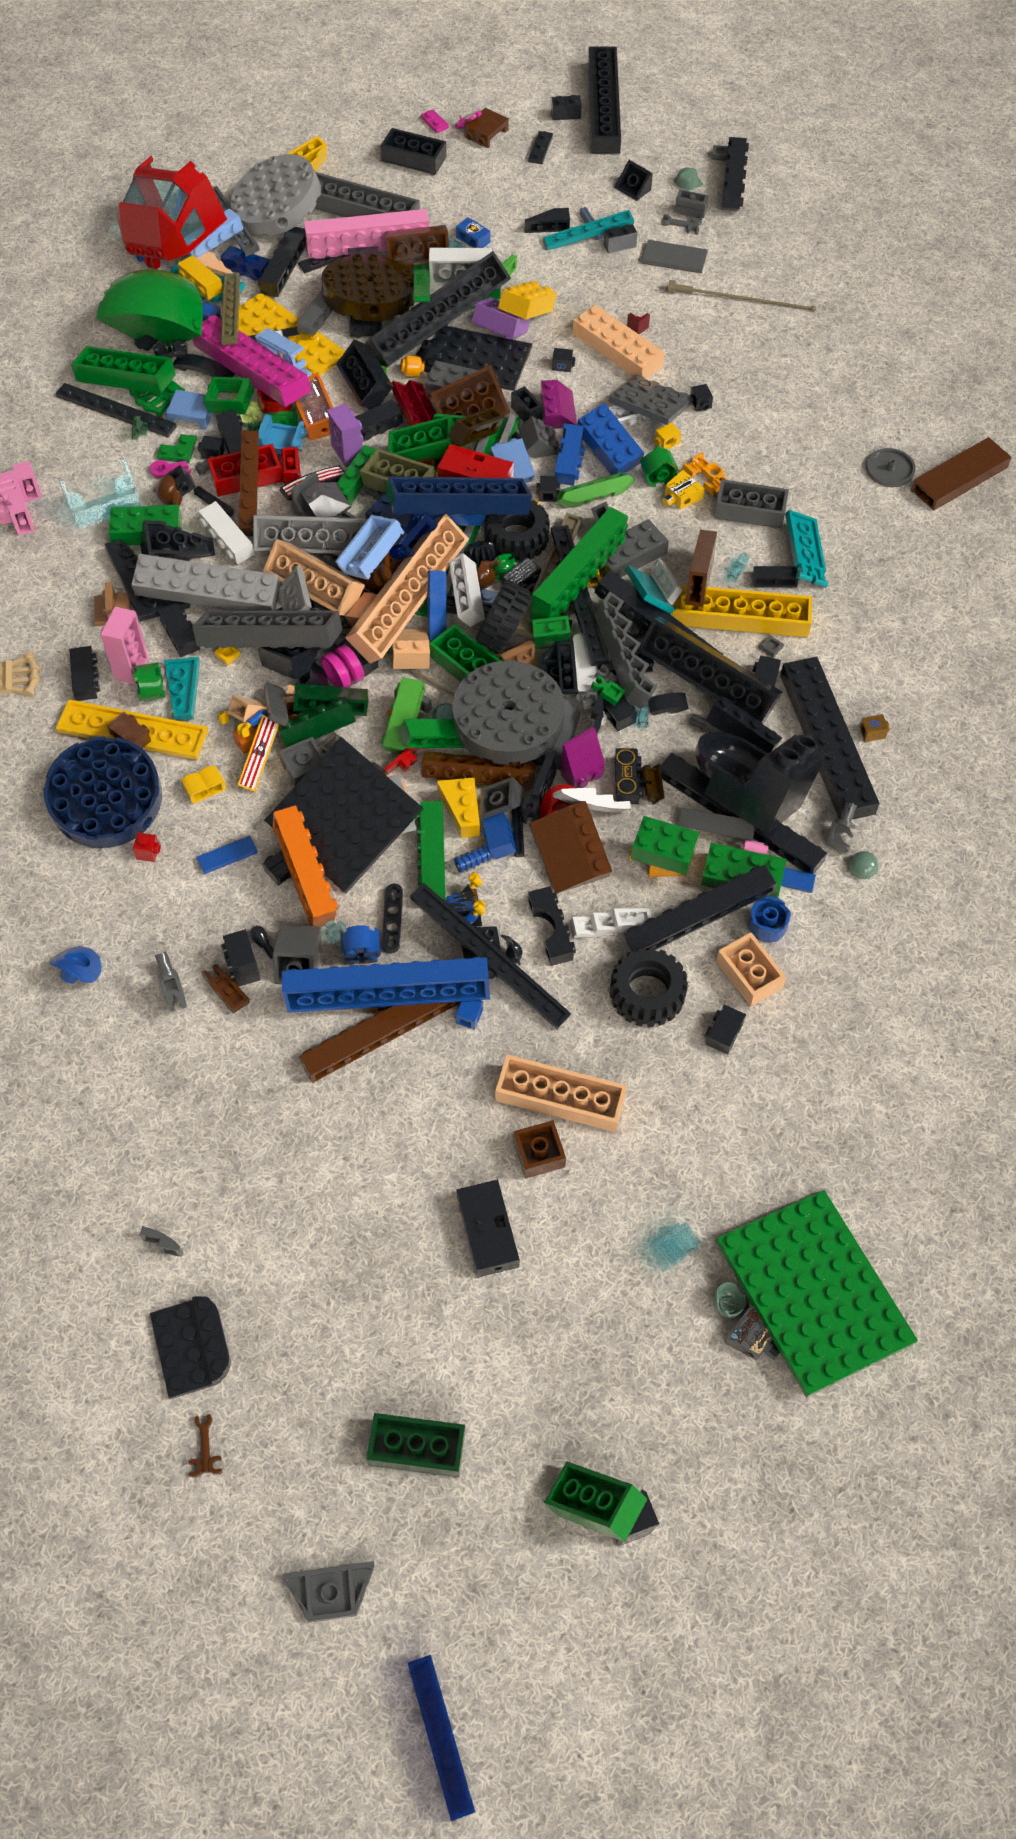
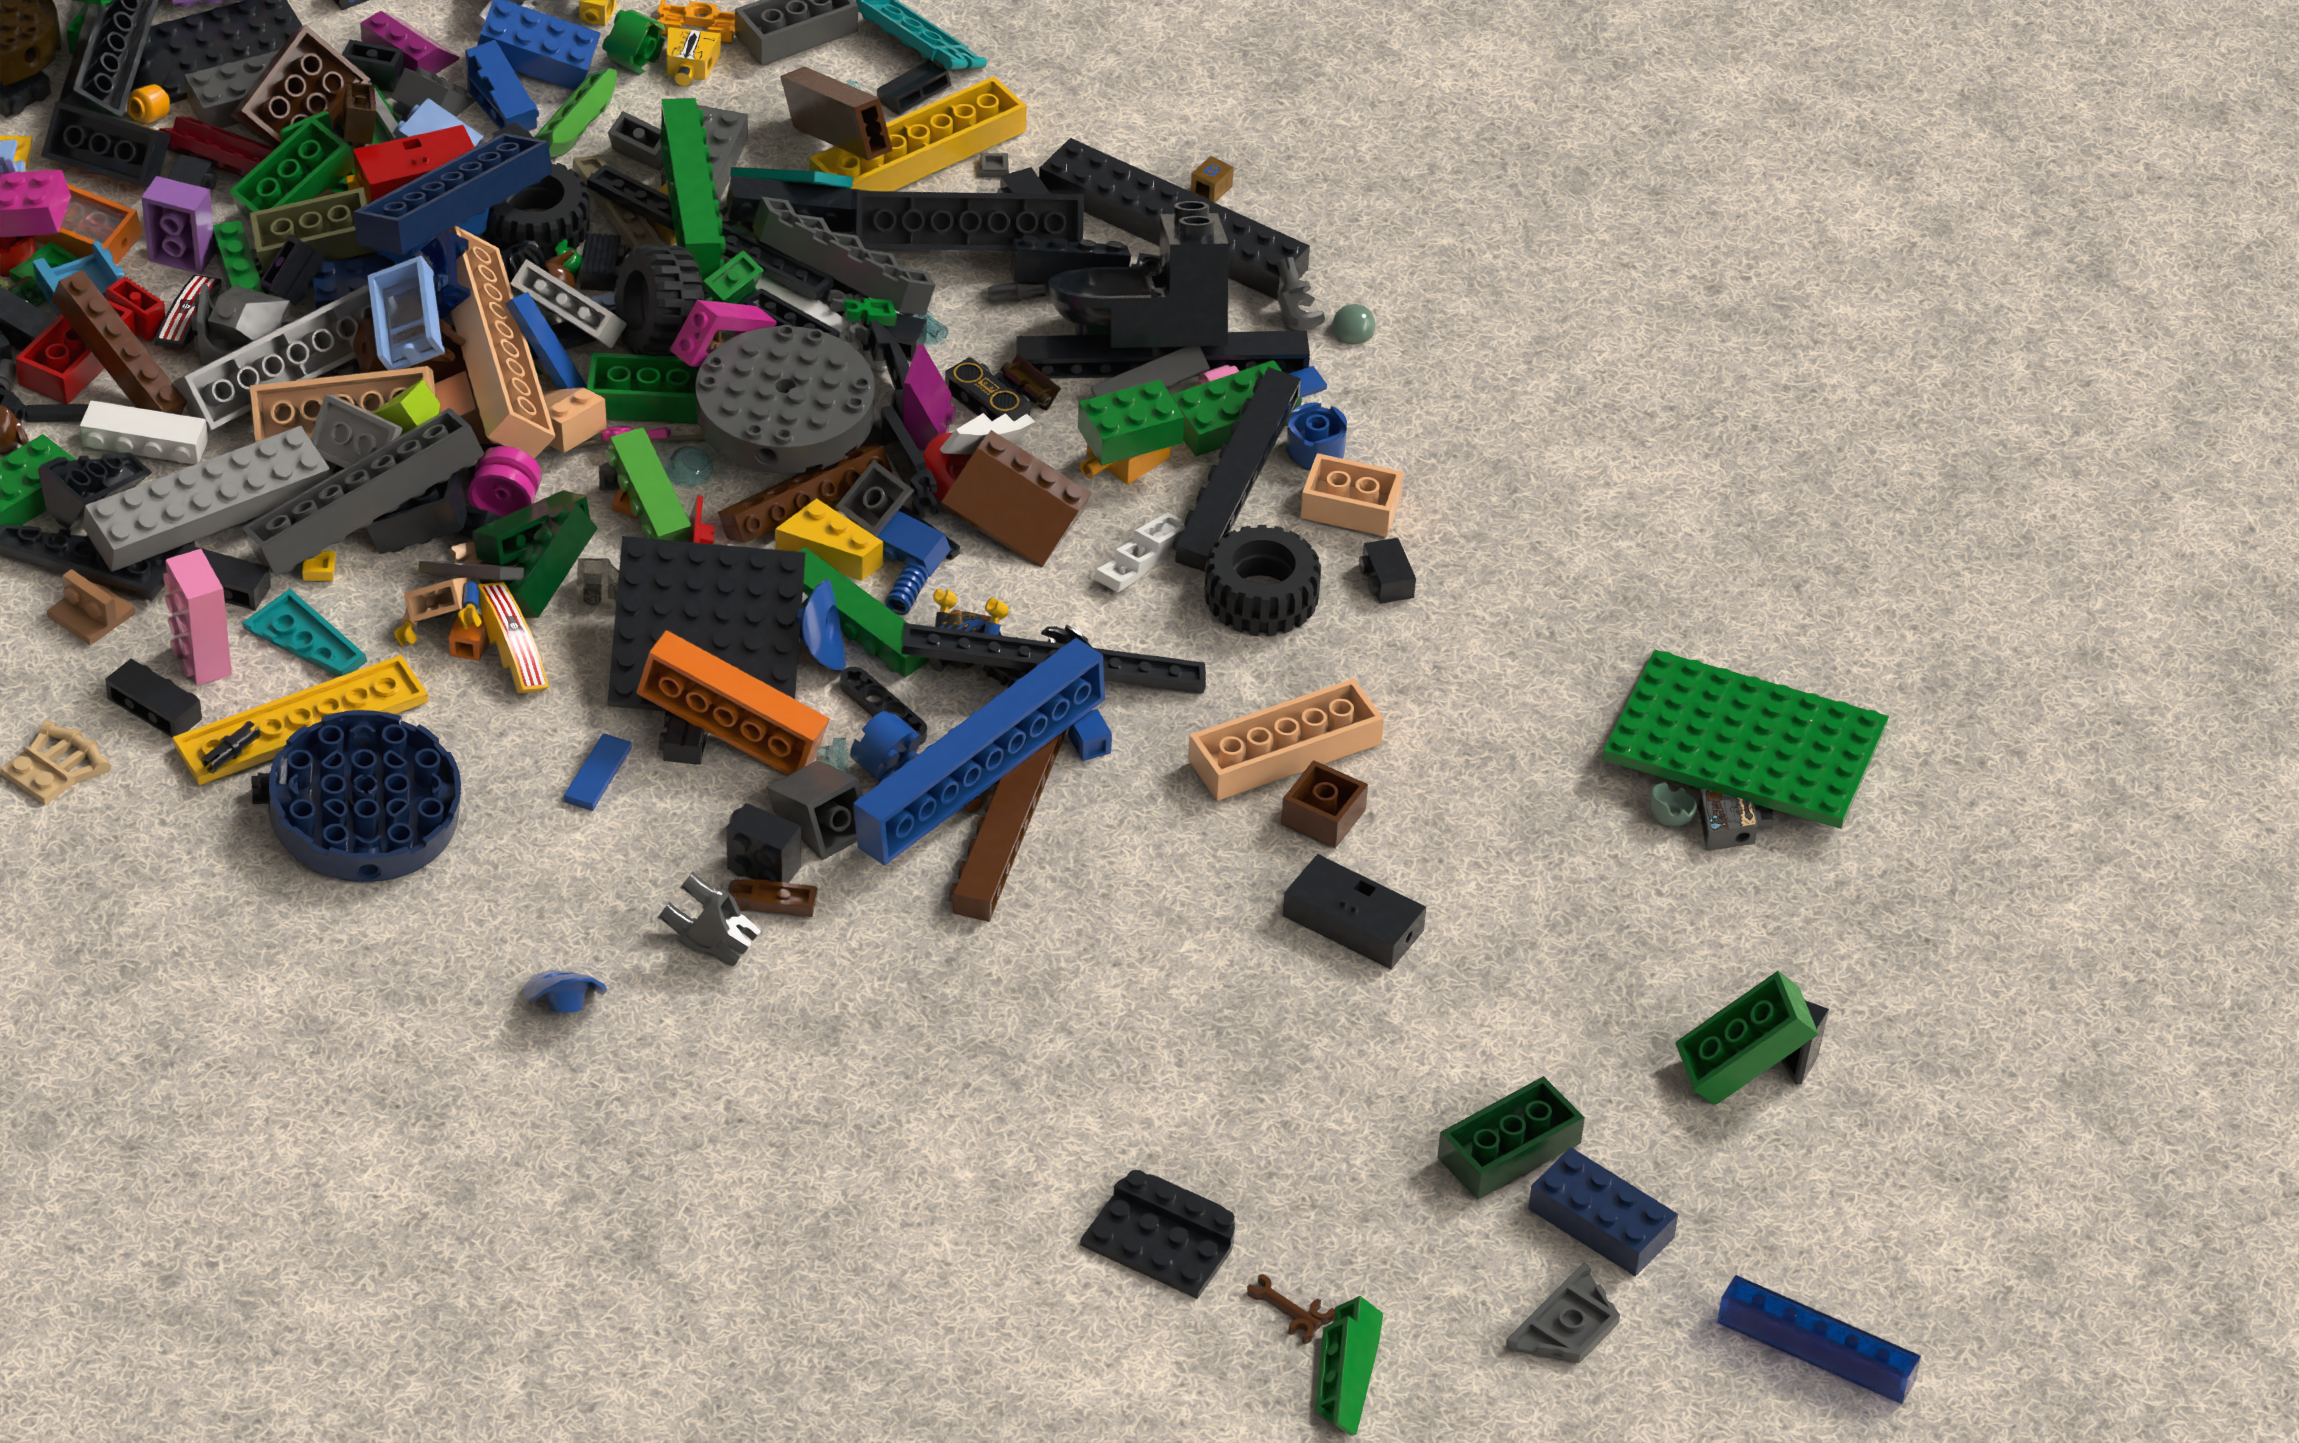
camera: 45 degrees left, 15 degrees down
(79, 723) = (230, 747): none -> black pin
(129, 729) = (308, 709): reddish brown brick -> none
(146, 847) = (491, 821): red brick -> none
(150, 681) = (265, 648): green brick -> none
(165, 1243) = (1020, 1164): dark grey slope -> none
(191, 1513) = (1347, 1363): none -> green wedge
(203, 784) = (474, 717): yellow brick -> none
(300, 758) = (577, 611): dark grey panel -> none
(330, 599) = (410, 407): none -> lime slope
(366, 490) = (293, 270): none -> black brick
(397, 855) = (821, 627): none -> blue hat
(416, 1537) = (1603, 1211): none -> dark blue brick
(429, 733) = (710, 483): green brick -> none
(432, 677) = (616, 430): none -> dark pink piece
(511, 646) = (707, 319): none -> dark pink piece
(544, 905) = (1050, 580): black arch -> none
(666, 581) = (799, 157): white tile -> none
(668, 702) = (948, 290): black slope -> none
(675, 1245) = (1564, 797): clear light blue brick -> none

